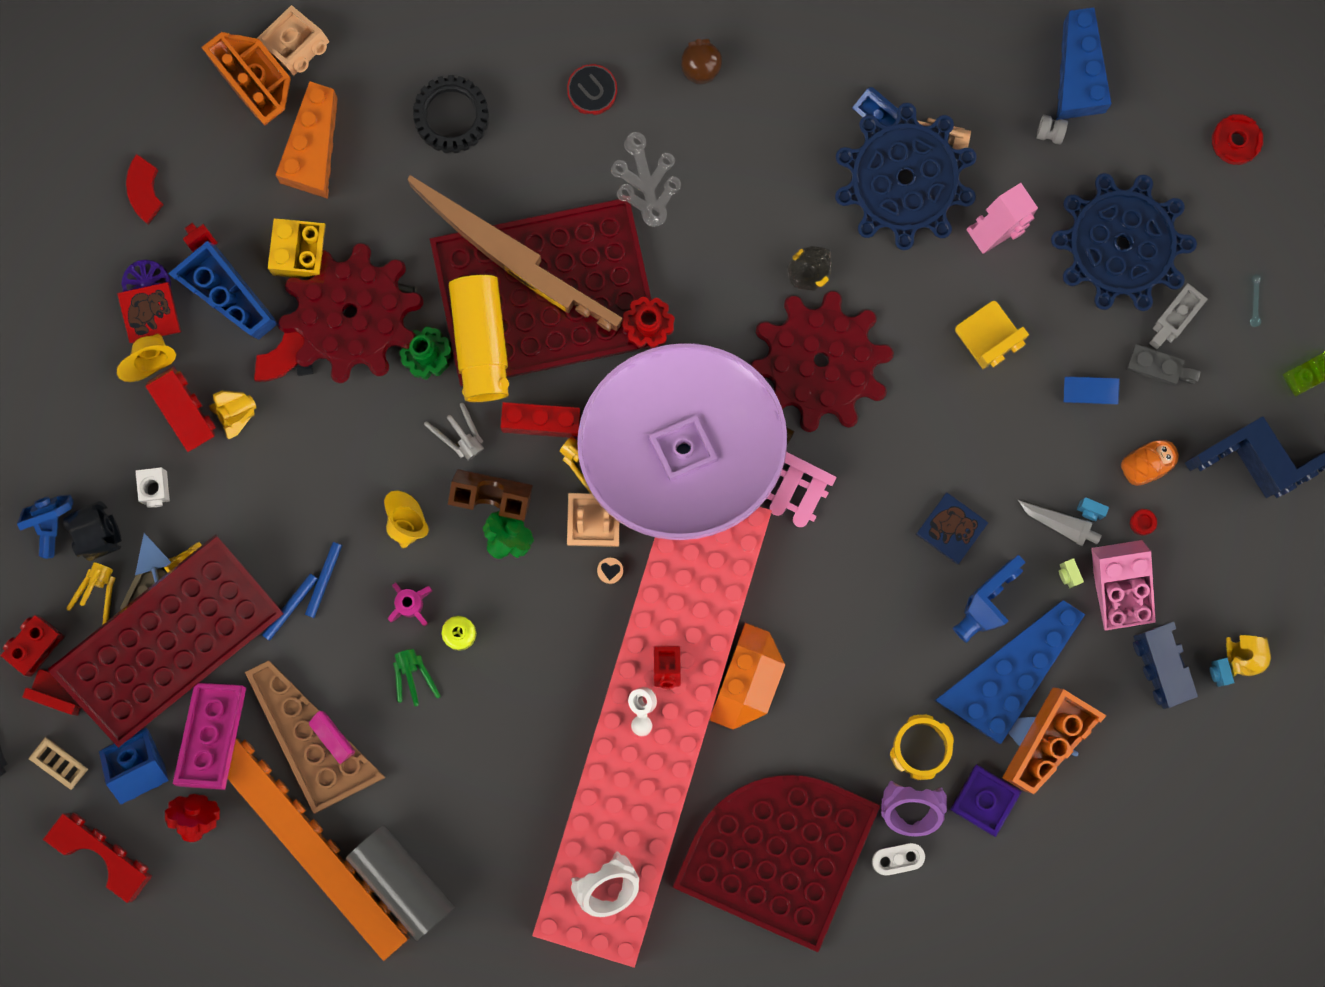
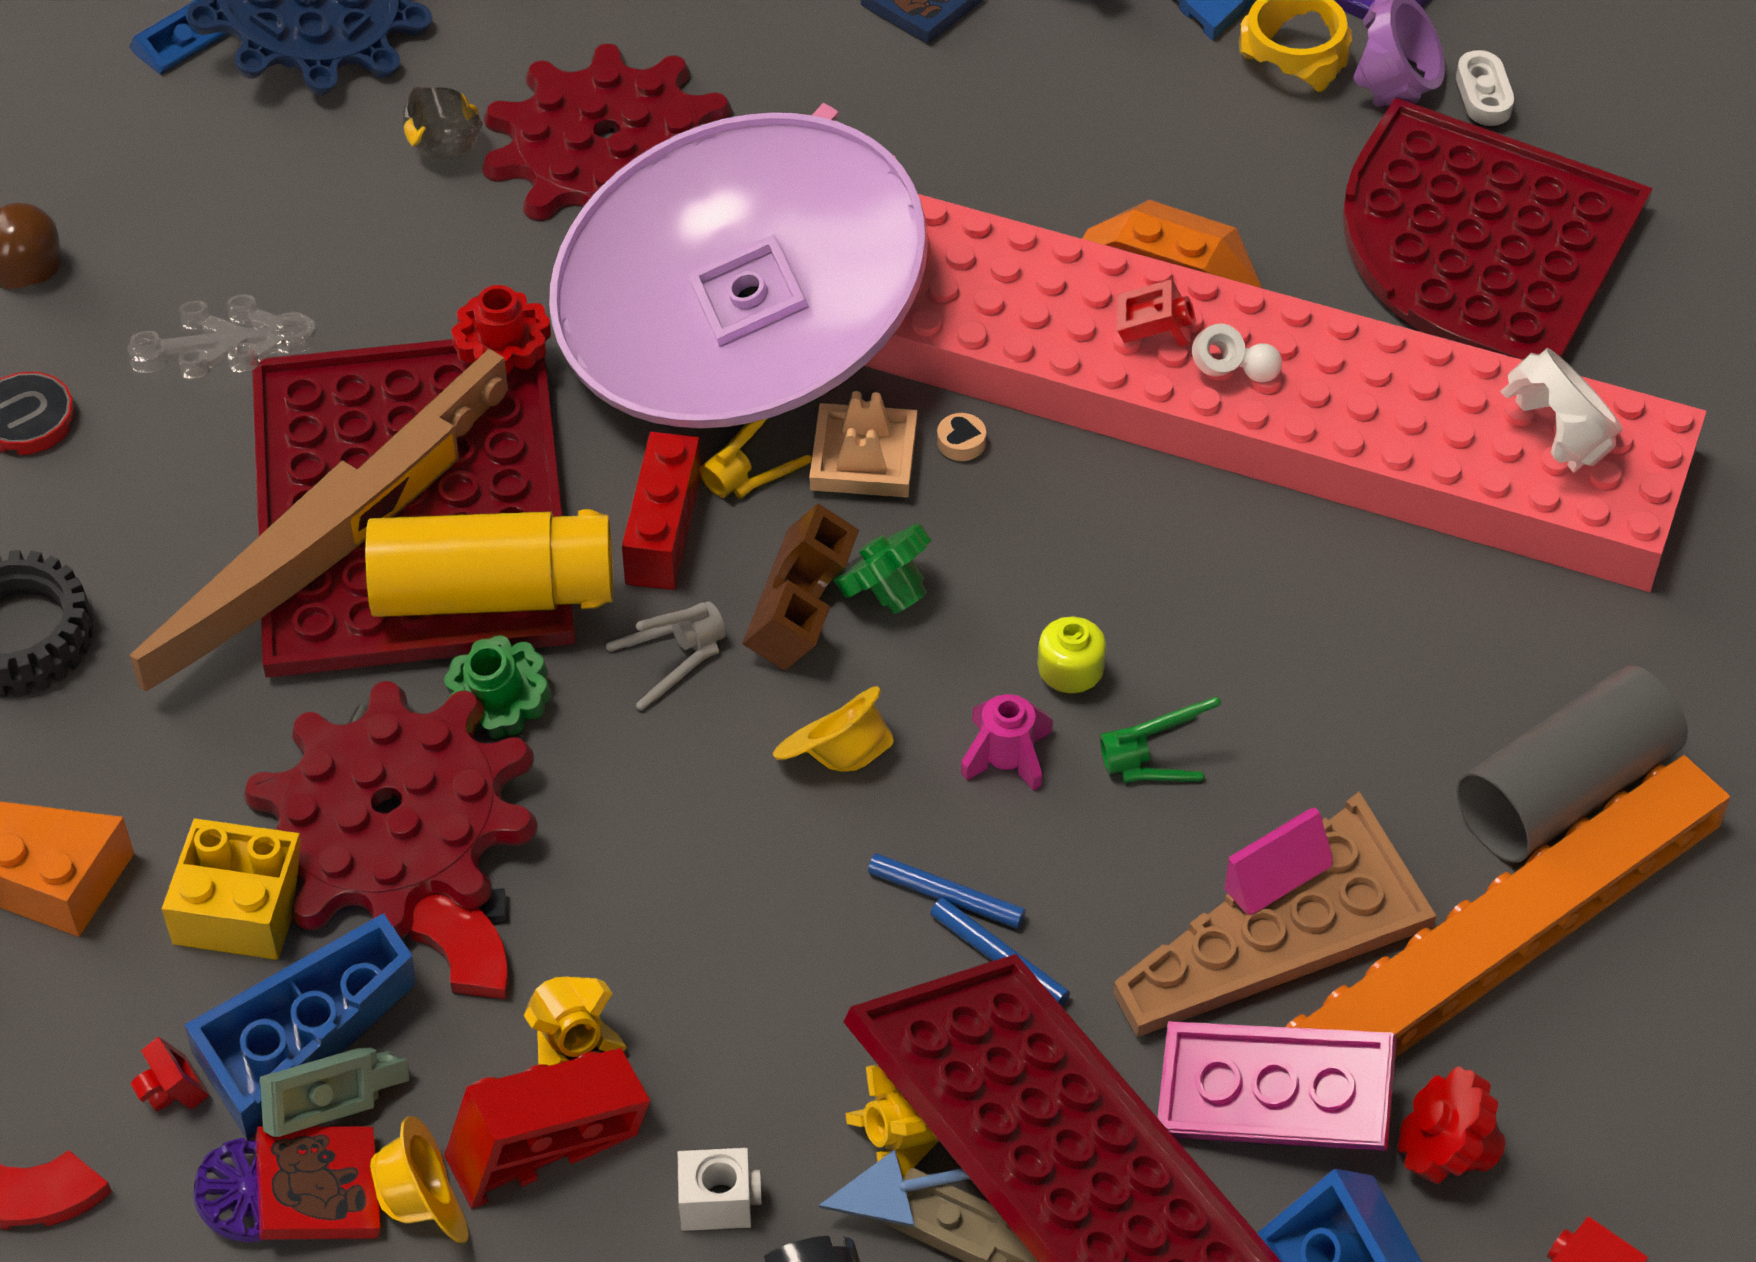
camera: 80 degrees left, 30 degrees down
(189, 311) = (327, 1089): none -> sand green hinge

